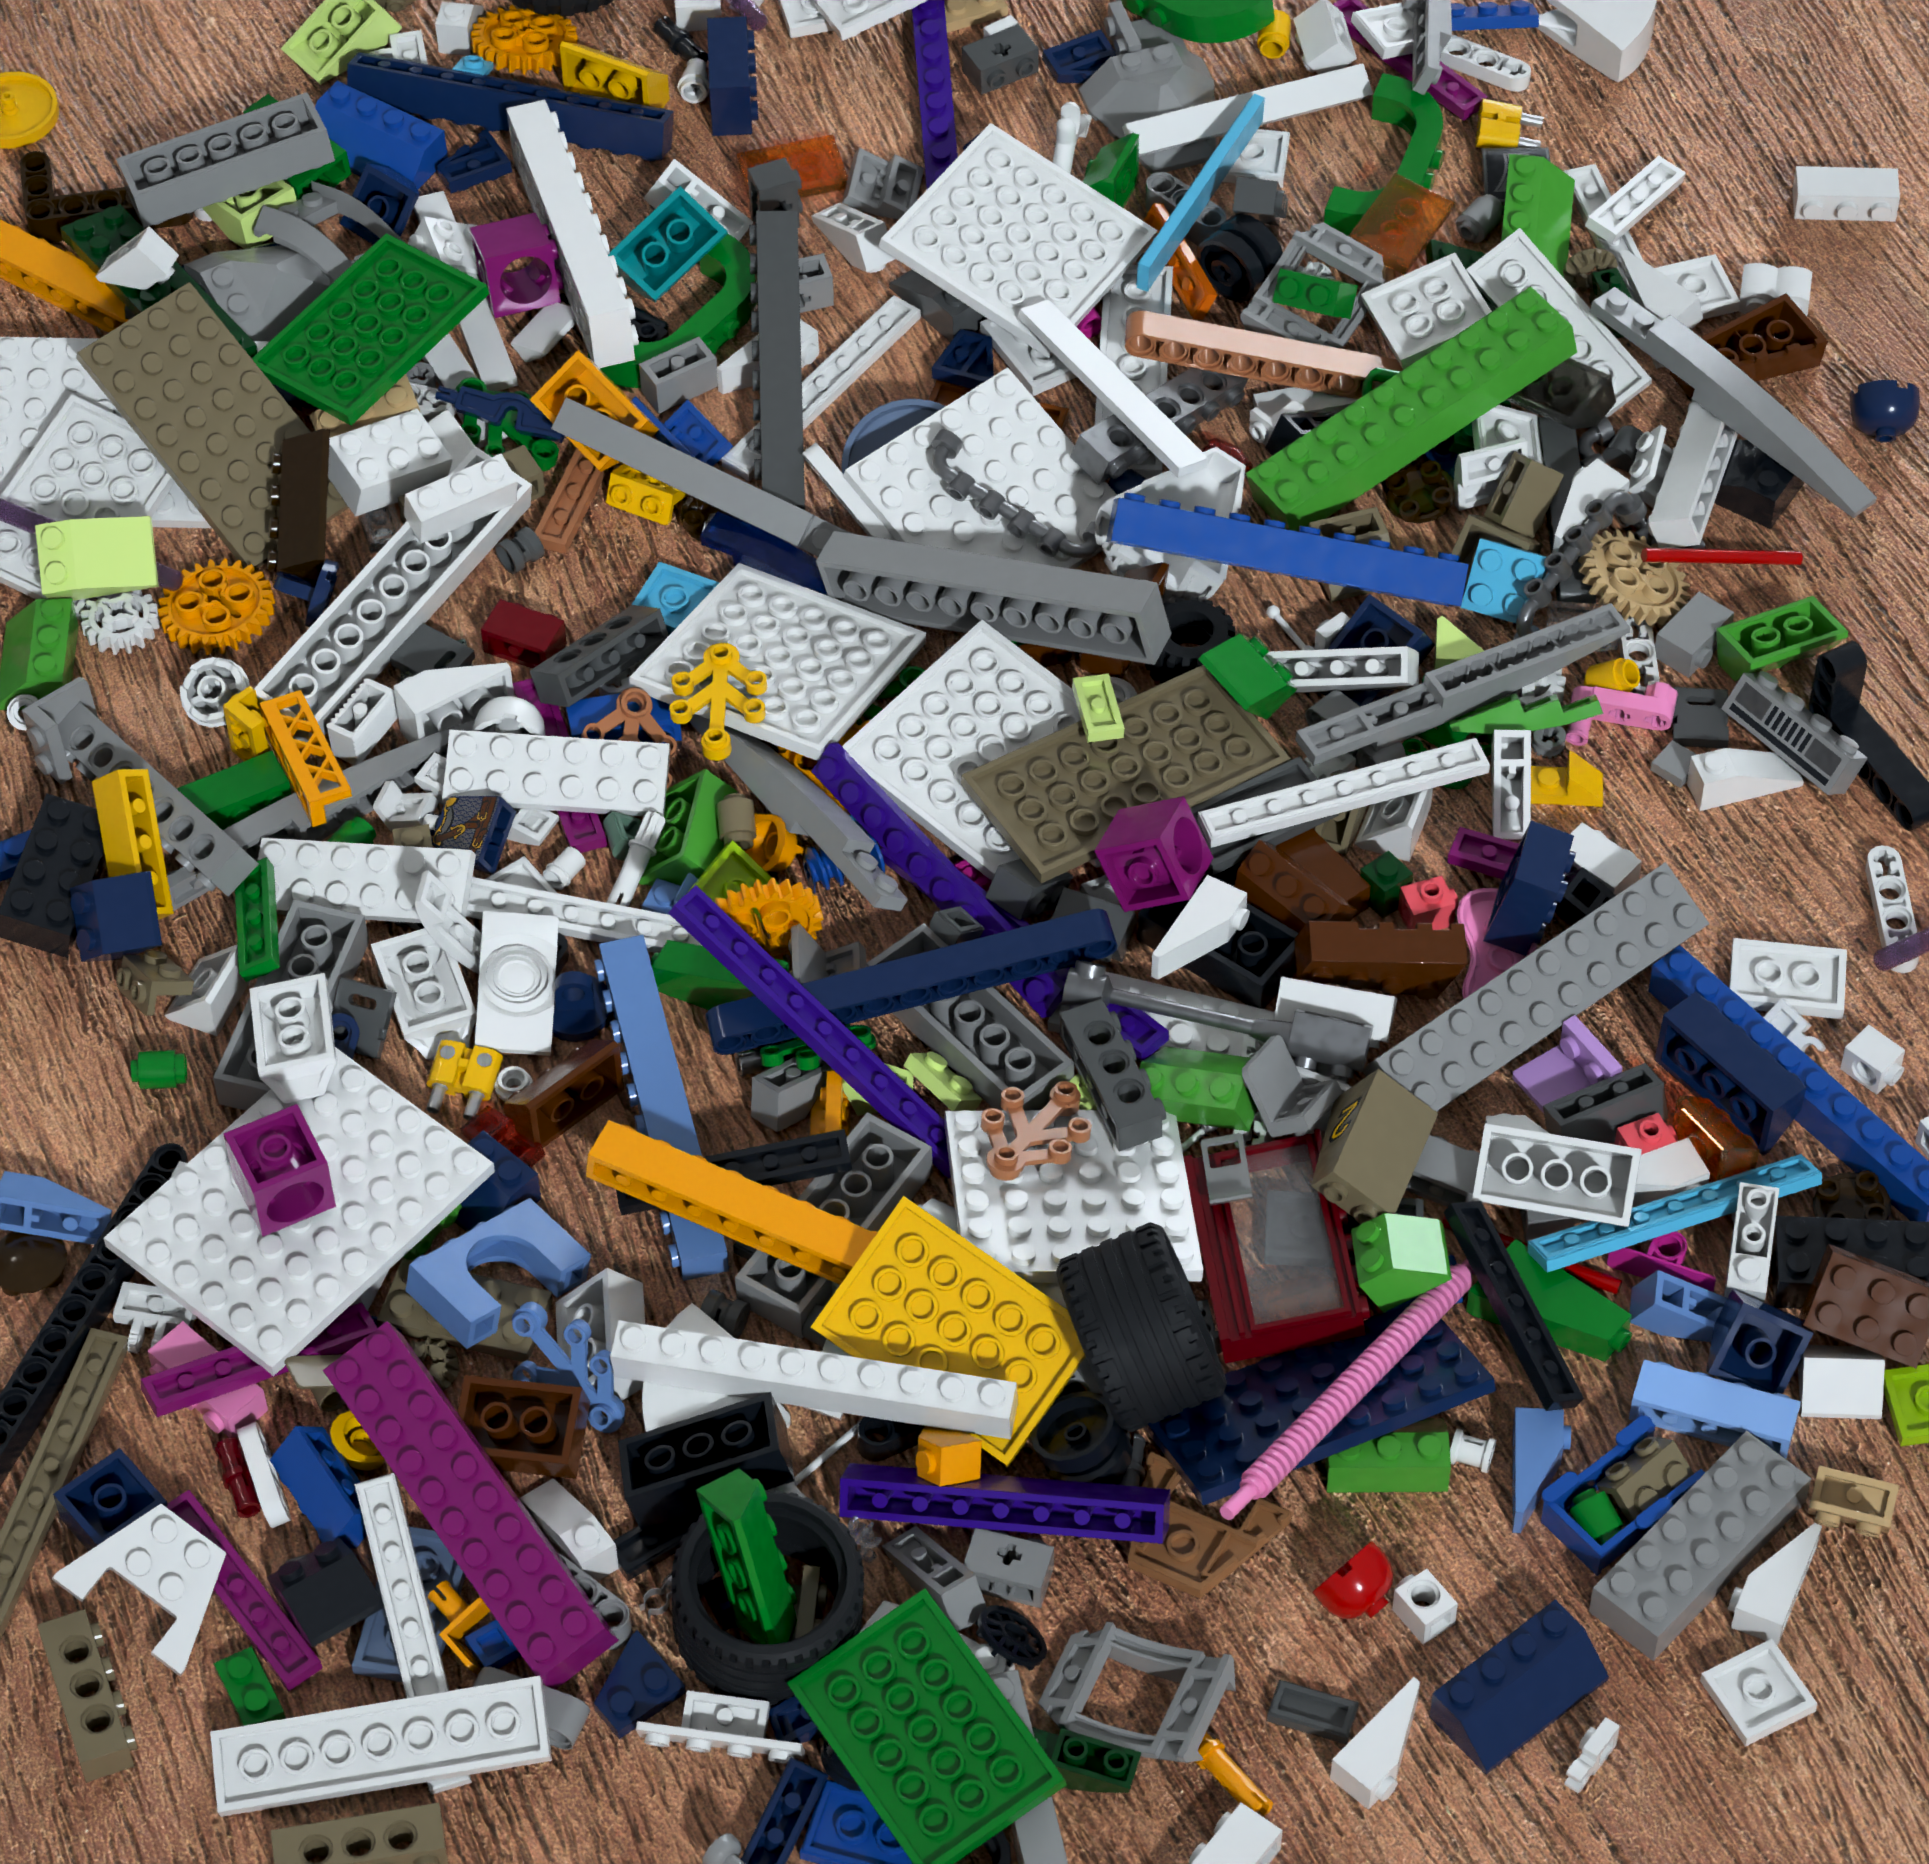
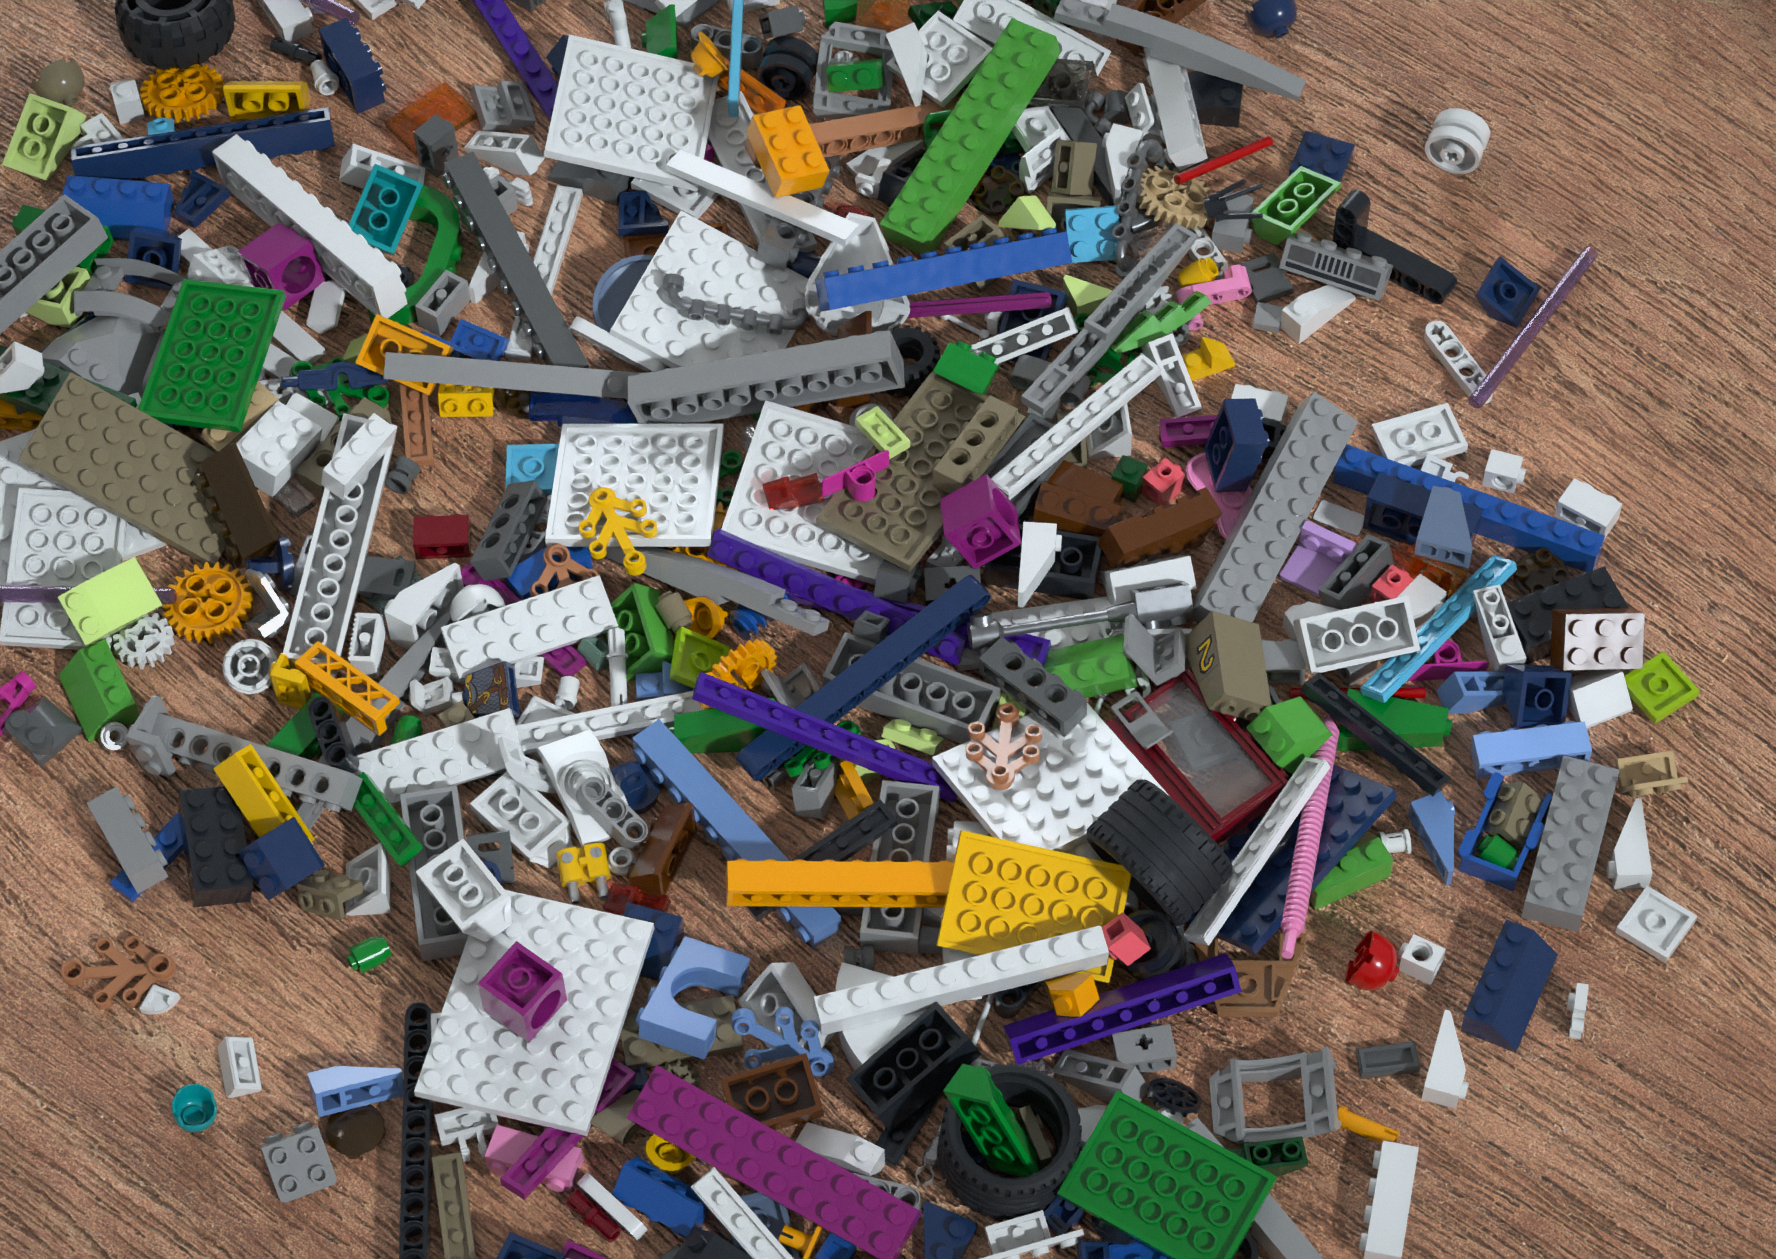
camera: 25 degrees left, 5 degrees up
(255, 803) = (329, 725): none -> black beam
(265, 653) = (276, 614): none -> light grey bracket
(517, 1001) = (608, 798): none -> light grey beam
(842, 277) = (522, 187): none -> white hinge
(953, 739) = (794, 493): none -> clear red slope
(1035, 746) = (857, 479): none -> dark pink piece
(1043, 1415) = (1125, 939): none -> coral brick
(1145, 207) = (707, 58): none -> light orange piece
(1166, 341) = (787, 151): none -> light orange brick
(1204, 763) = (975, 445): none -> dark tan brick
(1276, 1380) = (1257, 850): none -> white tile
(1310, 610) = (980, 305): none -> magenta axle
(1388, 295) = (911, 57): none -> white slope
(1434, 527) = (1027, 213): none -> yellowish green slope
(1630, 1035) = (1339, 517): none -> white sticker
(1675, 602) = (1217, 202): none -> black plant
(1734, 1087) = (1444, 529): none -> sand blue slope
(1859, 602) = (1323, 155): none -> dark blue plate

